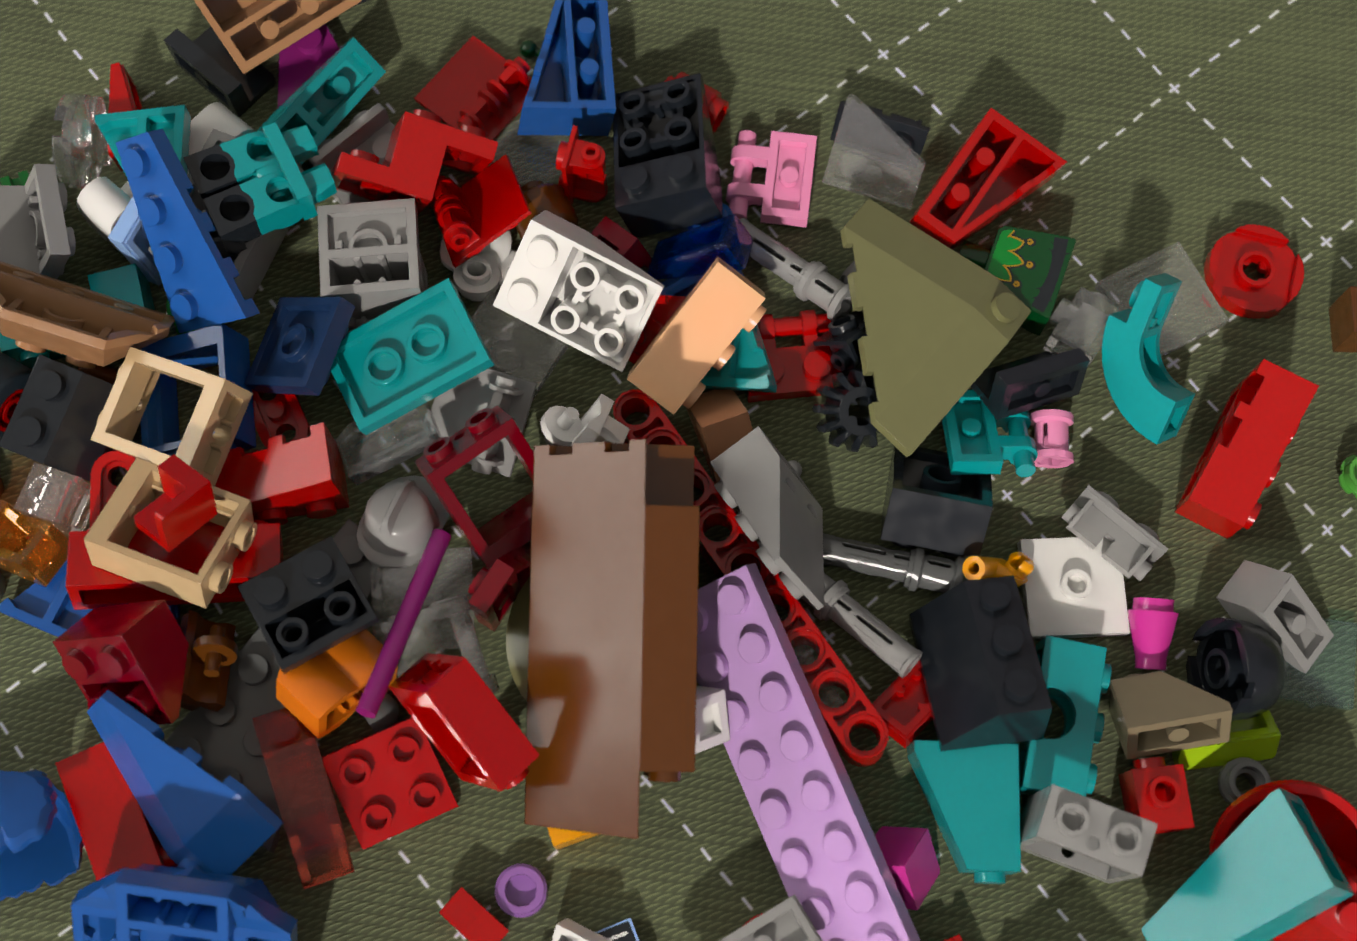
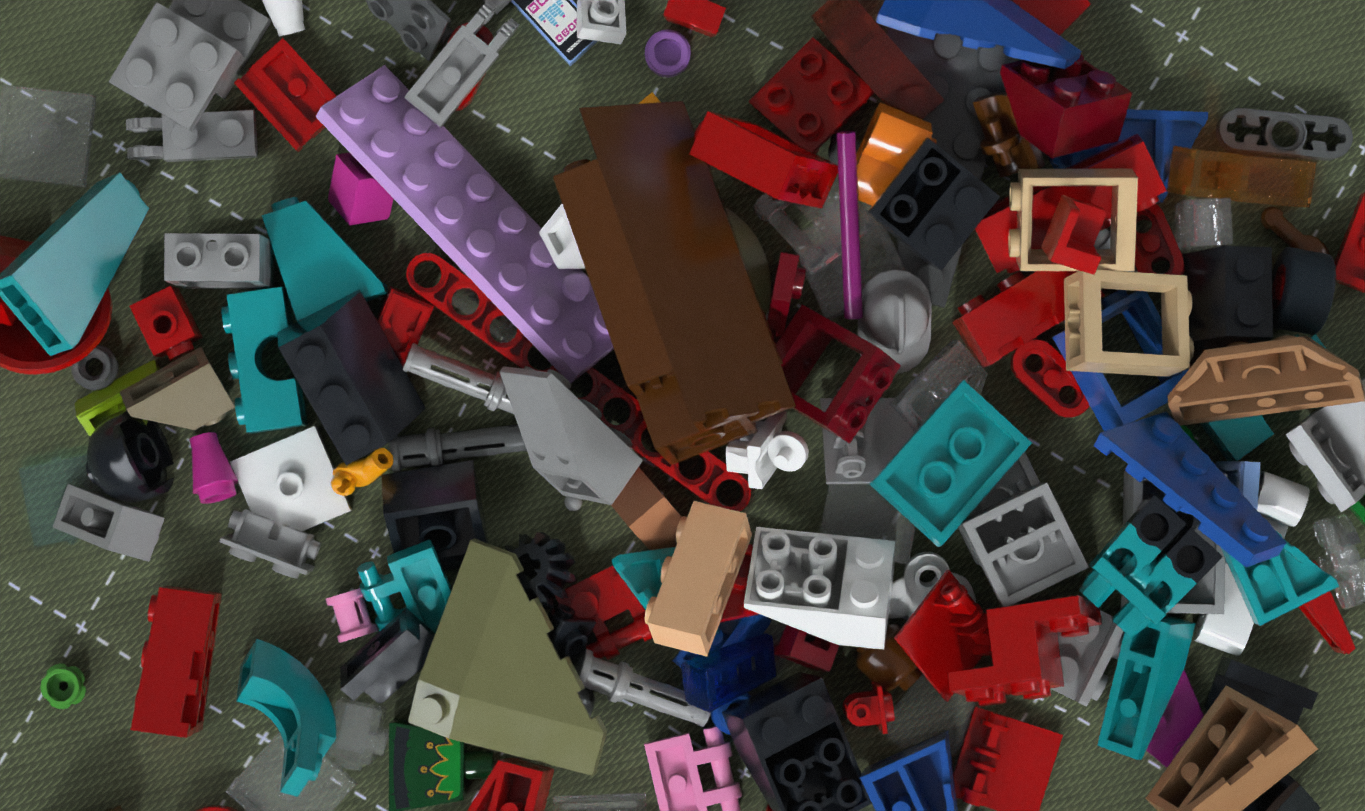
camera: 160 degrees right, 15 degrees up
(300, 345) = (1048, 434): dark blue plate -> none

